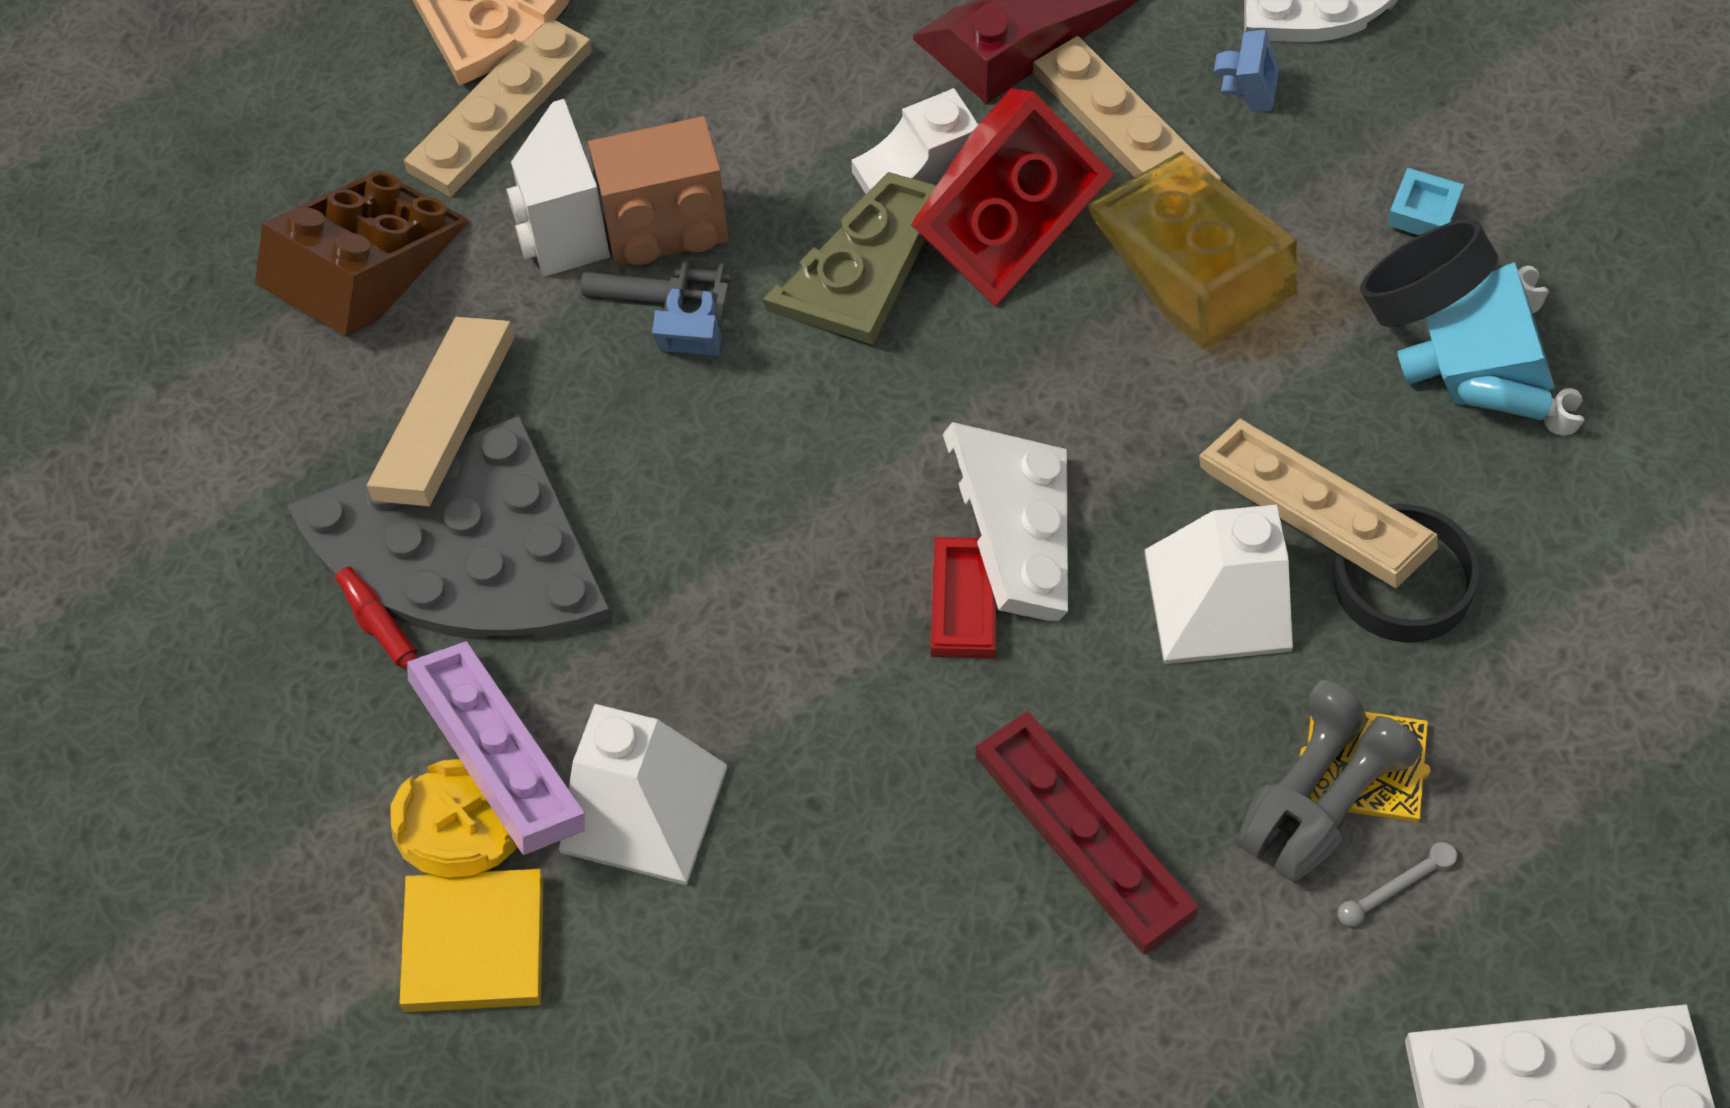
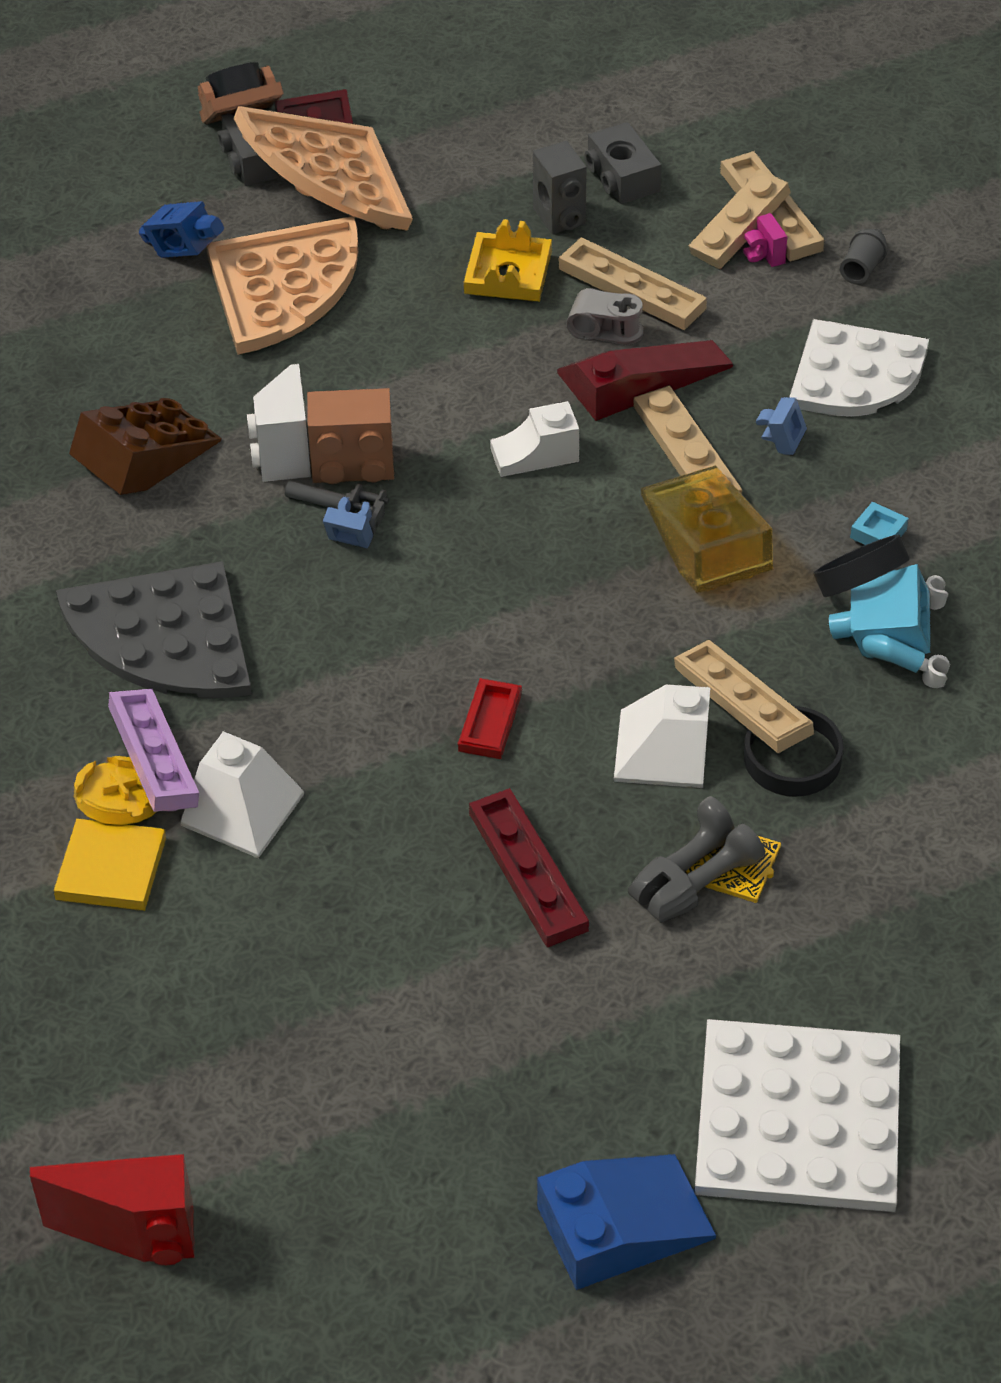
camera: 10 degrees right, 10 degrees down
(374, 617) = (95, 665): red piece -> none
(441, 412) = (171, 548): tan tile -> none
(497, 107) = (249, 376): tan plate -> none
(862, 267) = (481, 505): olive wing -> none
(1009, 193) = (587, 474): red slope -> none
(1021, 514) = (540, 673): white wing -> none
(1441, 857) = (764, 925): light grey hinge -> none

